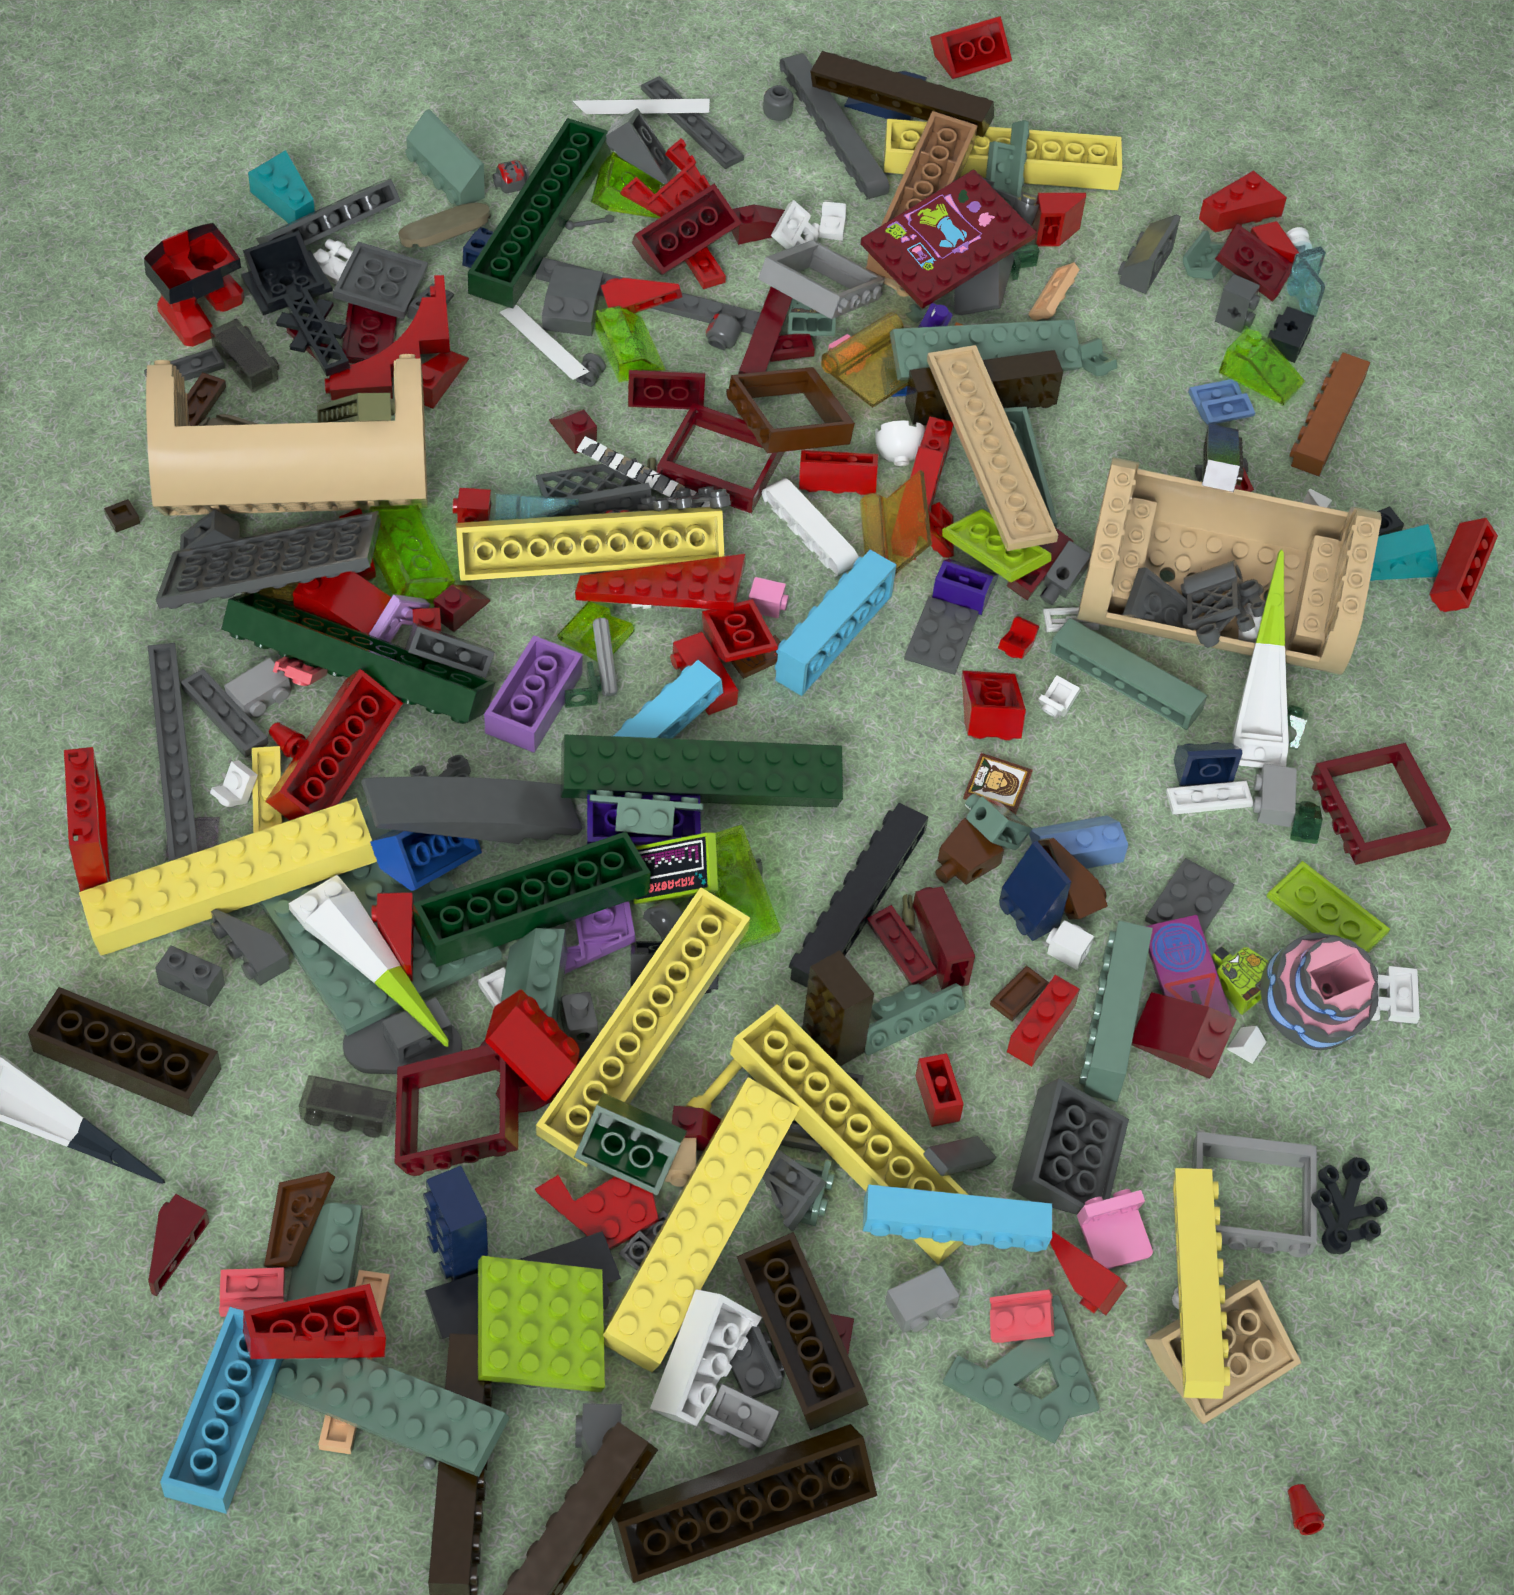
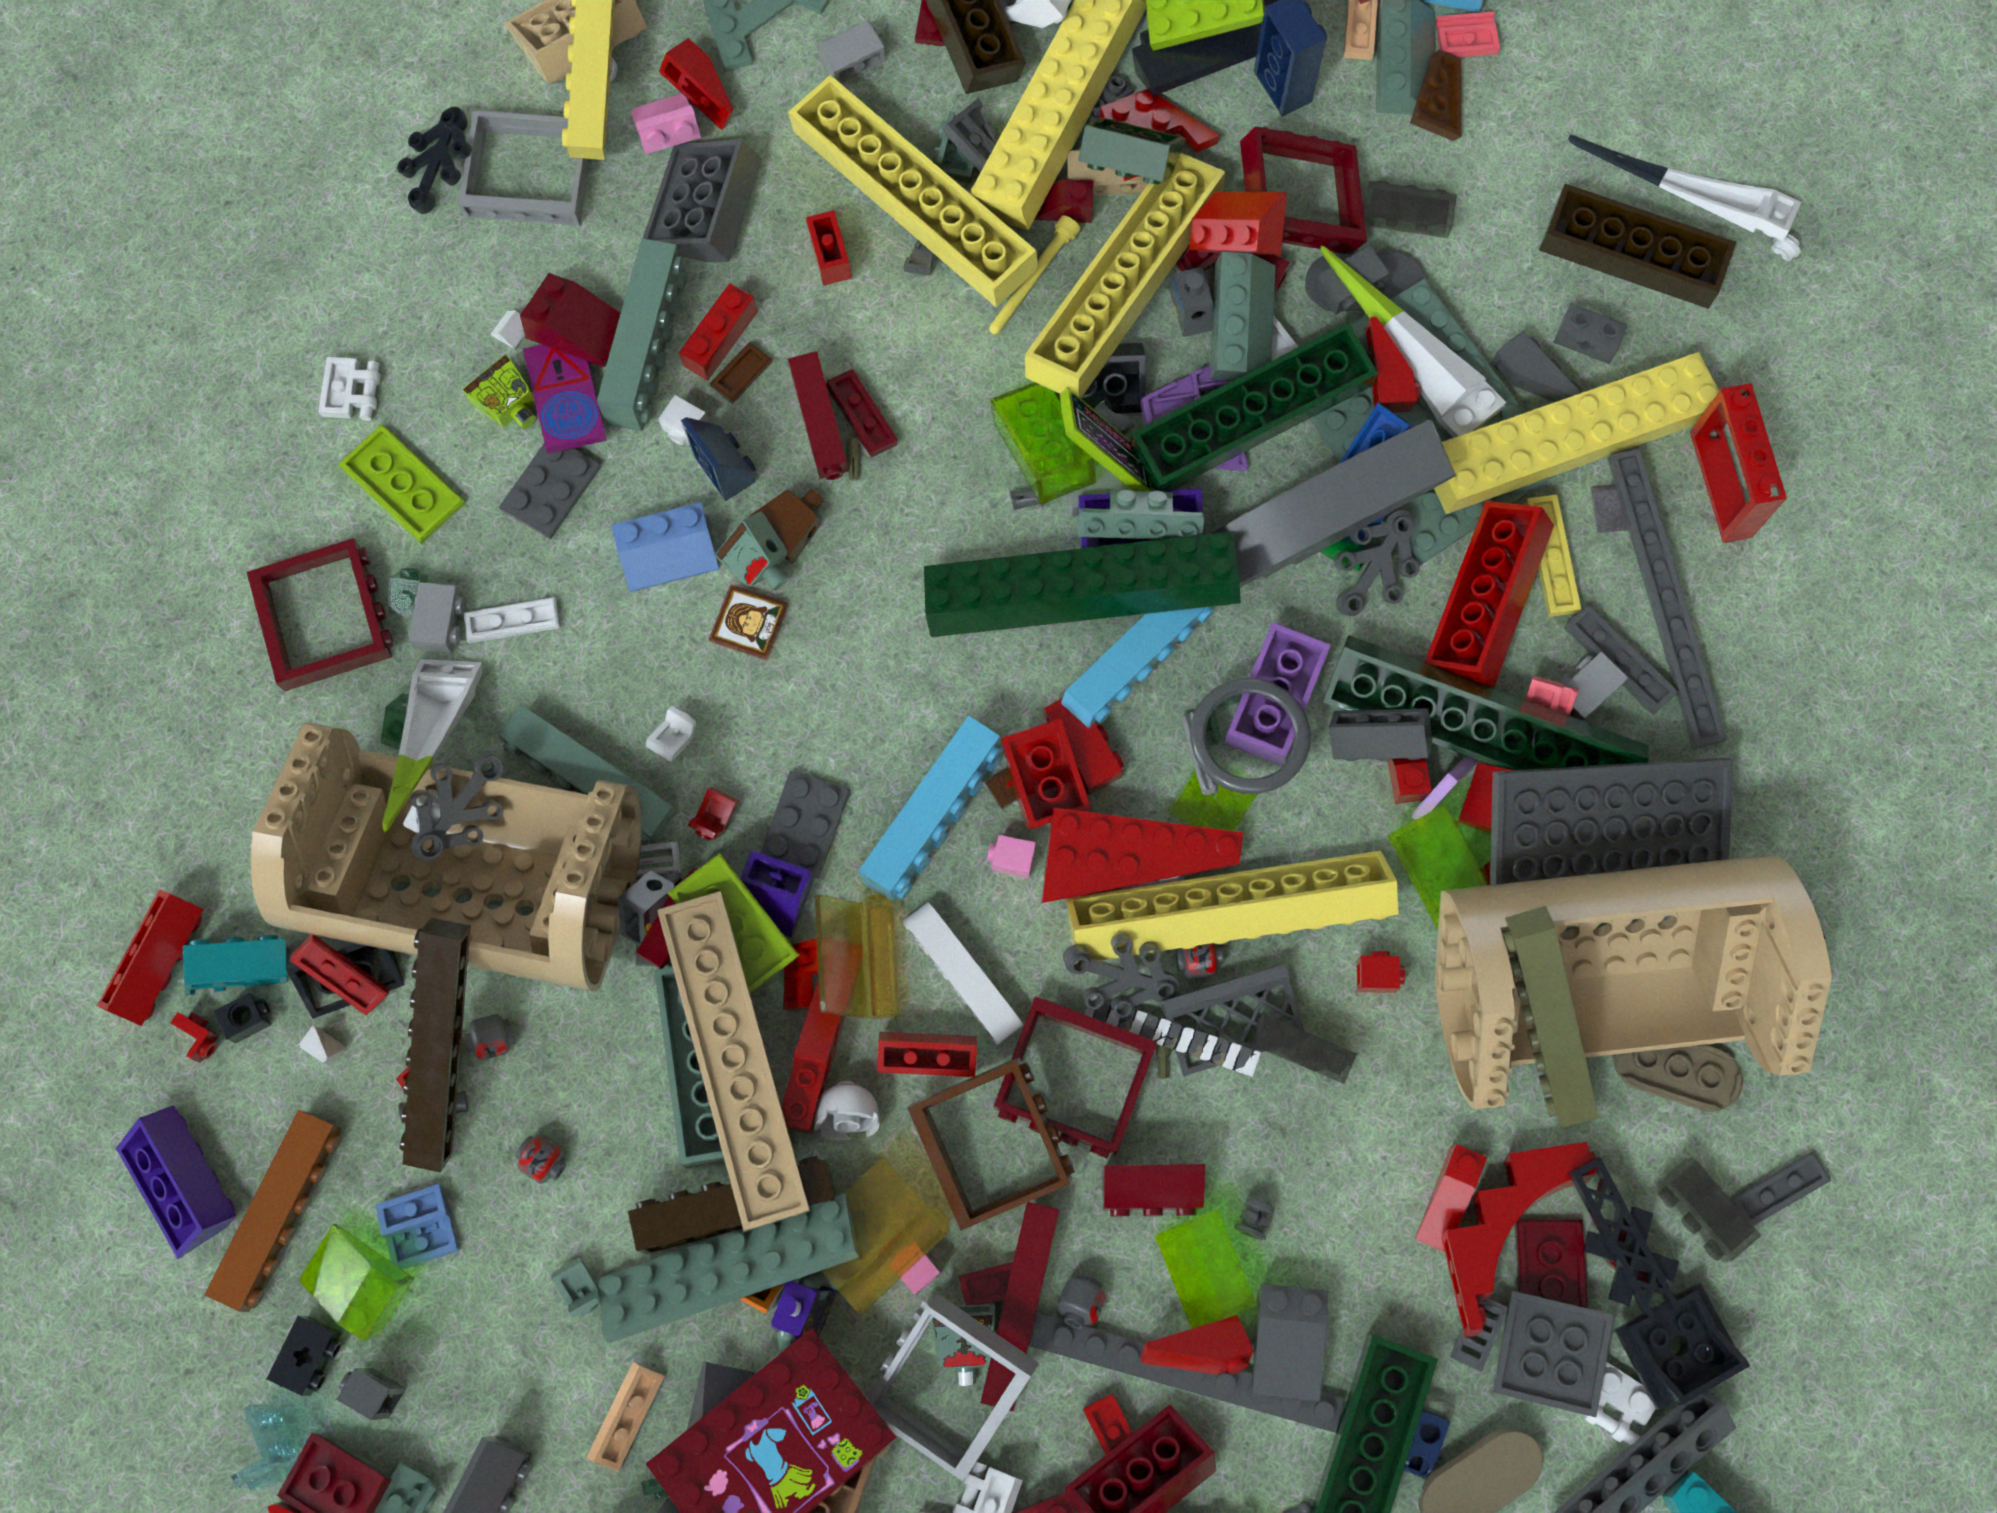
camera: 175 degrees left, 20 degrees up
(177, 1230) = (1549, 78): dark red slope -> none
(193, 267) = (1791, 1307): red piece -> none
(203, 397) = (1750, 1122): reddish brown plate -> none
(236, 786) = (1591, 555): white bracket -> none
(287, 738) = (1543, 627): red cone -> none
(459, 604) = (1375, 823): dark red slope -> none
(522, 506) = (1306, 954): clear light blue slope -> none
(542, 458) = (1302, 1048): none -> clear smoke brick
(544, 342) = (1319, 1265): white sticker -> none
(563, 682) = (1250, 785): none -> dark grey wedge
(574, 427) = (1268, 1116): dark red slope -> none
(837, 1008) = (931, 287): dark brown brick -> none
(862, 890) = (904, 466): black brick -> none
(909, 1013) = (862, 341): sand green bracket -> none
(957, 1218) = (817, 90): medium azure brick -> none
(959, 1155) = (811, 174): dark grey tile -> none
(992, 705) = (749, 725): red slope -> none
(1021, 1316) = (759, 41): coral plate -> none
(1085, 891) = (673, 478): reddish brown slope -> none
(1133, 433) = (540, 1158): none -> head
(1155, 600) = (545, 831): dark grey wing -> none
(1206, 763) = (509, 649): dark blue slope -> none
(1211, 585) = (474, 868): dark grey piece -> none
(1295, 994) = (425, 363): piece -> none
(1407, 435) = (175, 1180): none -> dark purple slope
(1413, 518) = (196, 1027): none -> red bracket

